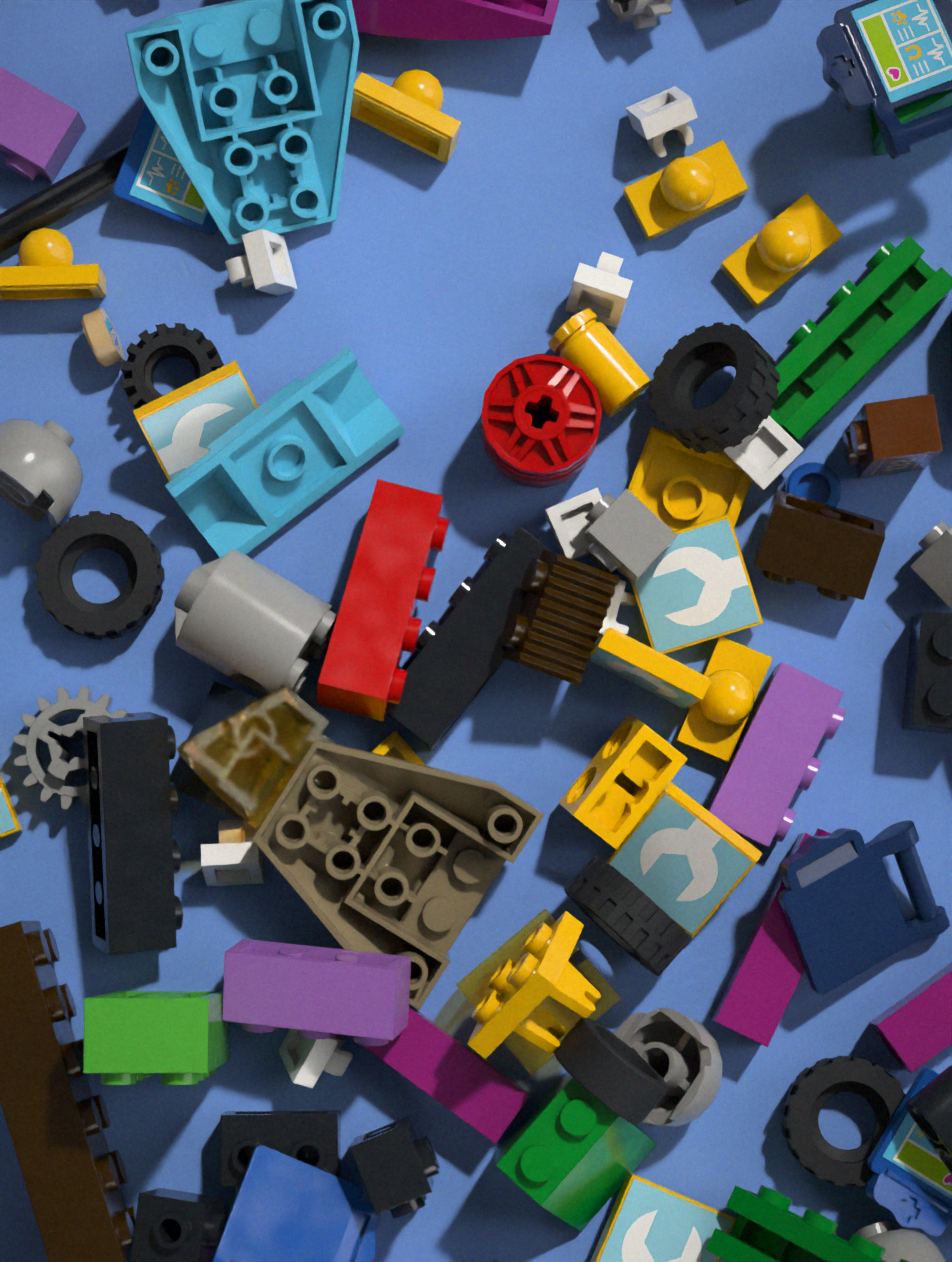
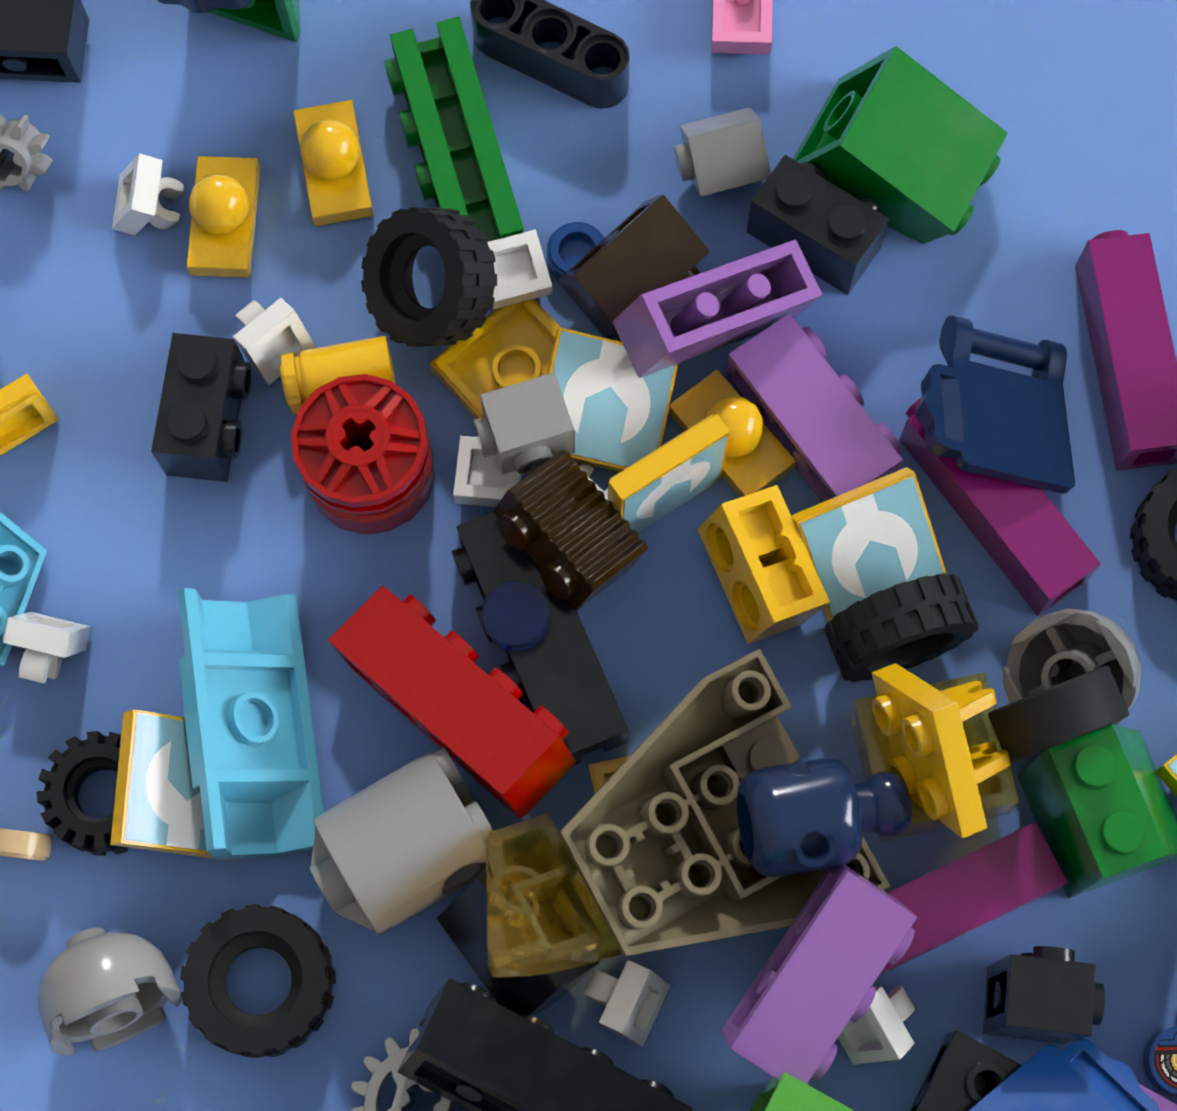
camera: 60 degrees left, 10 degrees down
(430, 923) = (815, 815): none -> dark blue piece
(471, 613) = (516, 615): none -> clear blue tile
(512, 271) = (201, 407): none -> black brick
(813, 633) = (716, 308): none -> medium lavender brick
(893, 436) = (570, 142): reddish brown brick -> none

